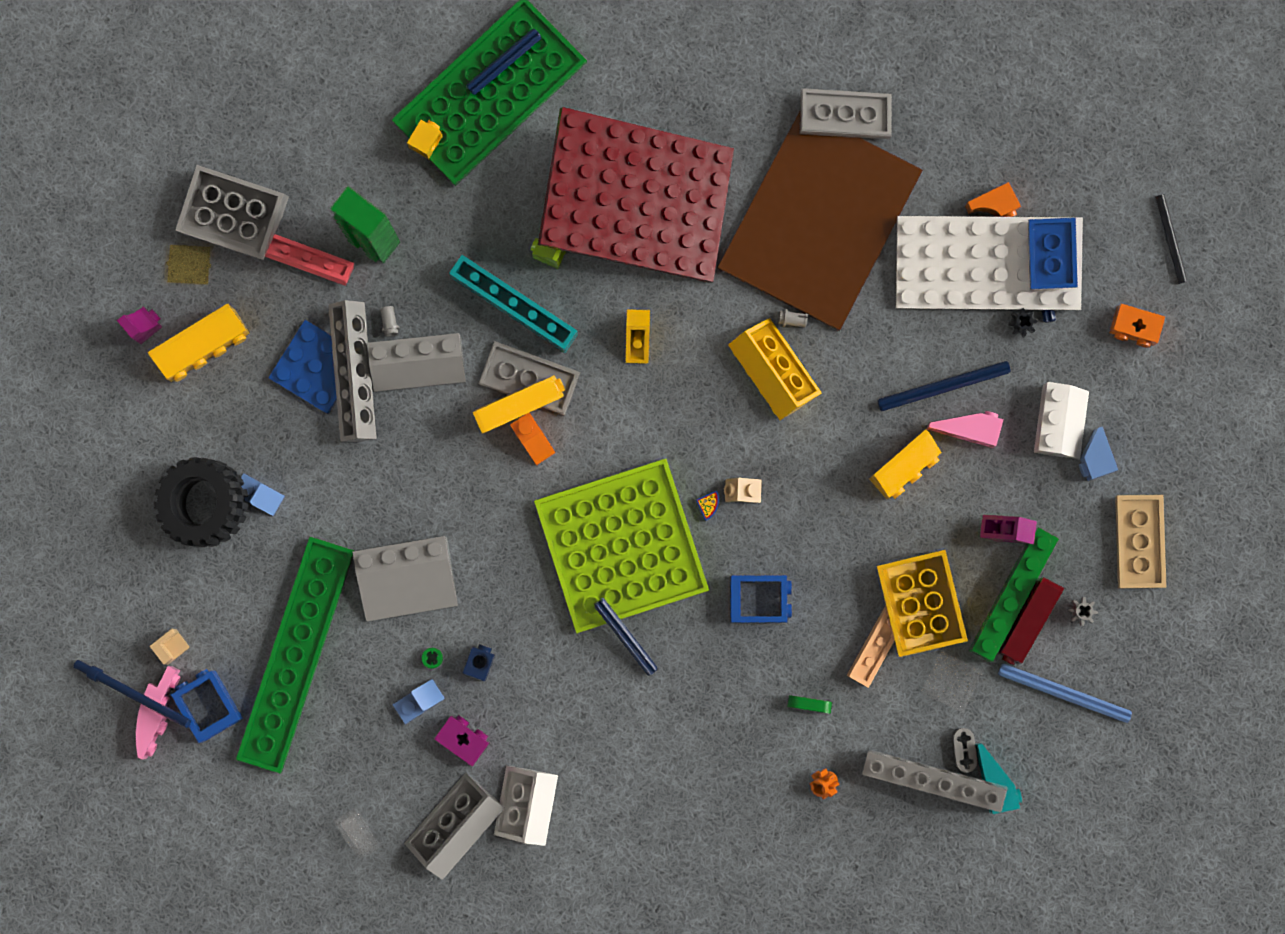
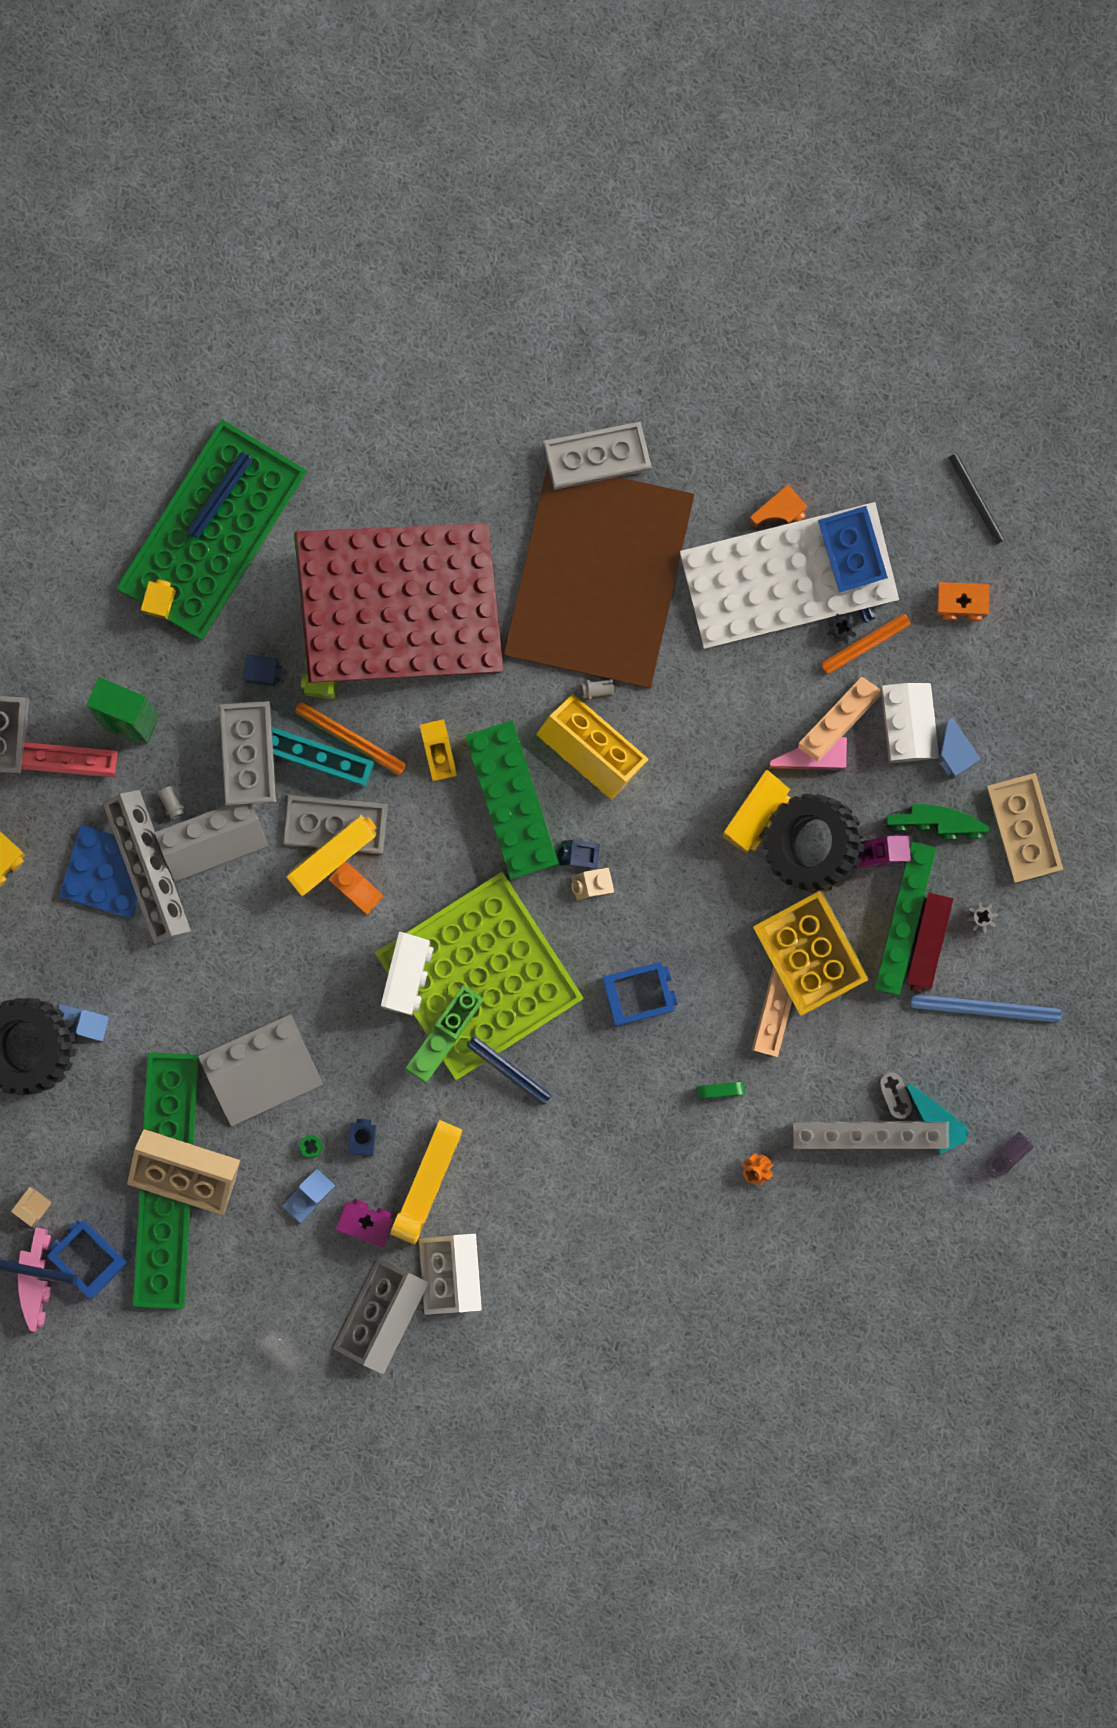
camera: 10 degrees left, 0 degrees up
(311, 651) = (183, 1172): none -> tan slope
(467, 294) = (247, 753): none -> light grey tile
(500, 225) = (262, 670): none -> dark blue brick
(525, 719) = (426, 1183): none -> yellow beam
(557, 527) = (406, 974): none -> white slope
(562, 305) = (350, 738): none -> orange axle
(576, 590) = (444, 1034): none -> bright green slope
(691, 397) = (511, 800): none -> green brick
(708, 504) = (560, 908): tile -> none
(738, 460) = (579, 854): none -> dark blue bracket
(926, 489) = (783, 837): none -> black tyre
(944, 386) = (776, 718): dark blue axle -> none
(1001, 401) = (839, 719): none -> light nougat plate
(1040, 341) = (865, 643): none -> orange axle
(1053, 829) = (1010, 1154): none -> clear purple piece
(1072, 517) = (948, 822): none -> green slope

